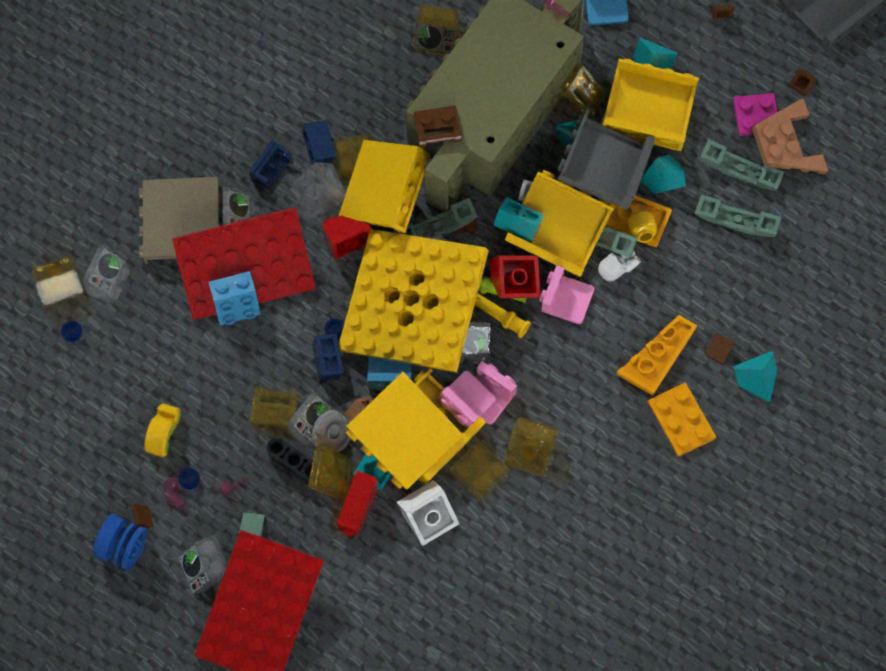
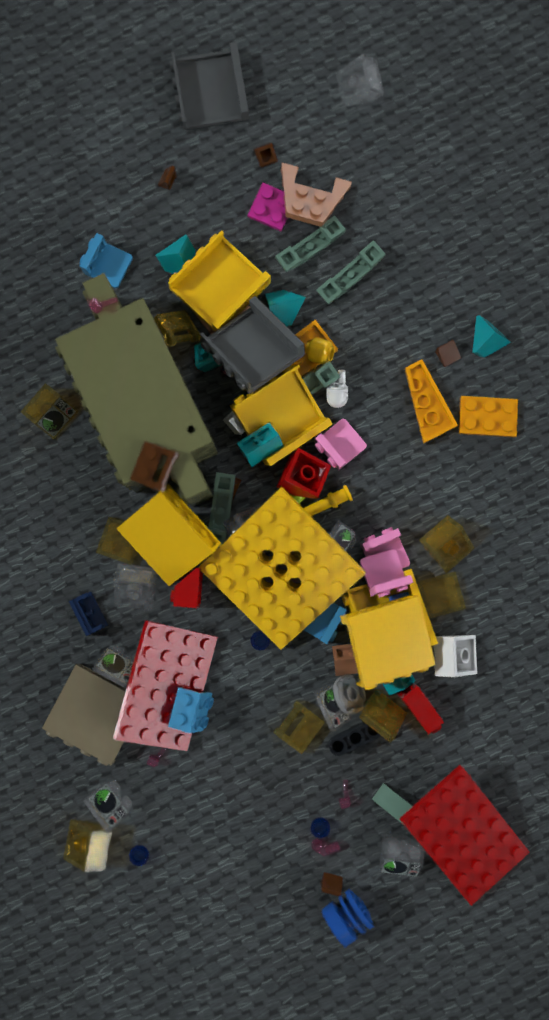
camera: 55 degrees left, 15 degrees up
(160, 430) = (268, 829): yellow animal -> none
(166, 294) = (154, 760): none -> clear pink hand
(318, 142) = (93, 563): dark blue hinge -> none
(327, 357) = (283, 661): dark blue hinge -> none

